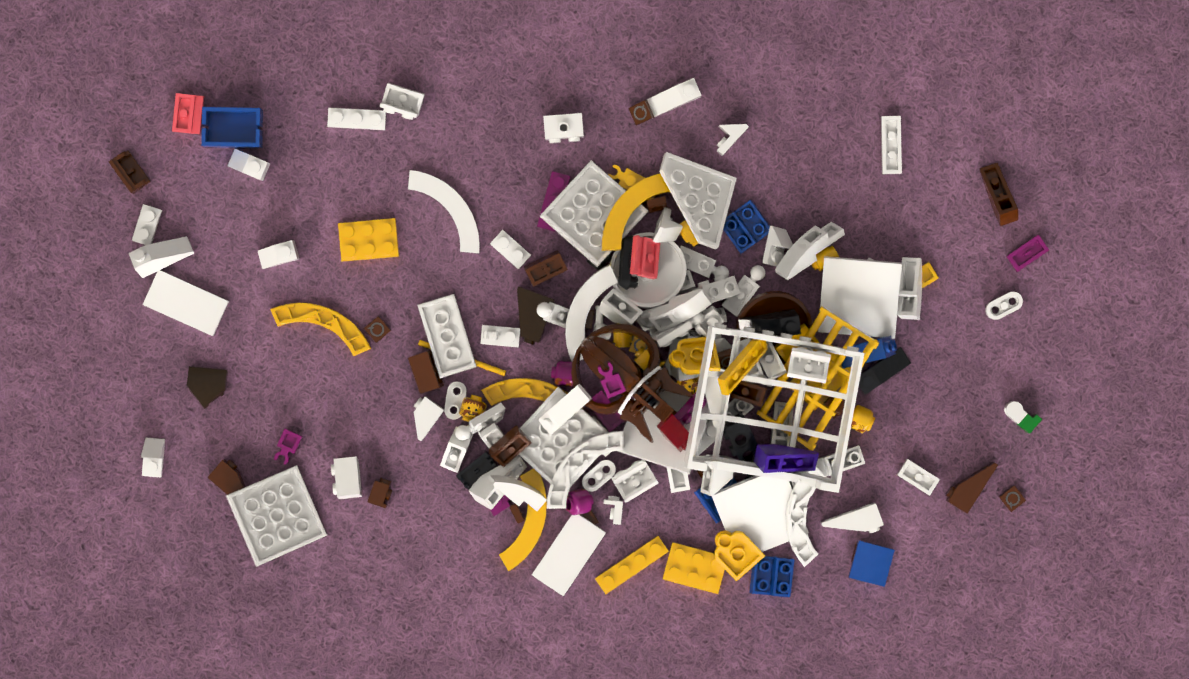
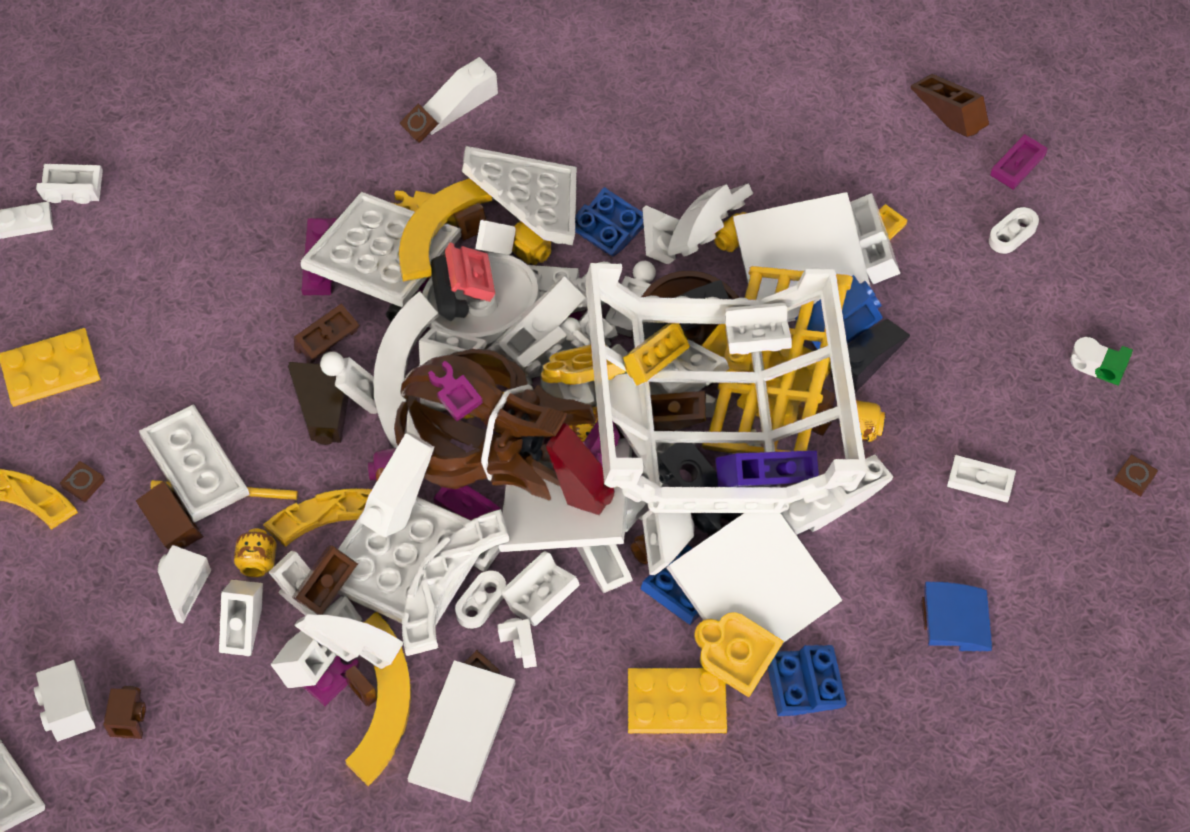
camera: 15 degrees left, 30 degrees down
(453, 203) = (168, 291): white tile -> none
(454, 400) = (223, 548): white plate -> none
(476, 469) = (273, 636): black hinge -> none
(481, 422) = (267, 556): white plate -> none
(500, 336) = (278, 445): white plate -> none
(510, 249) = (268, 329): white plate -> none
(563, 127) = (311, 161): white brick -> none
(579, 502) = (458, 641): magenta head -> none
(631, 564) = (571, 722): yellow plate -> none
(734, 131) = (553, 118): white slope -> none
(796, 520) = (815, 574): white tile -> none
(860, 519) = (911, 560): white slope -> none
(891, 145) = (779, 83): white plate -> none
(967, 491) = (1064, 475): reddish brown slope -> none

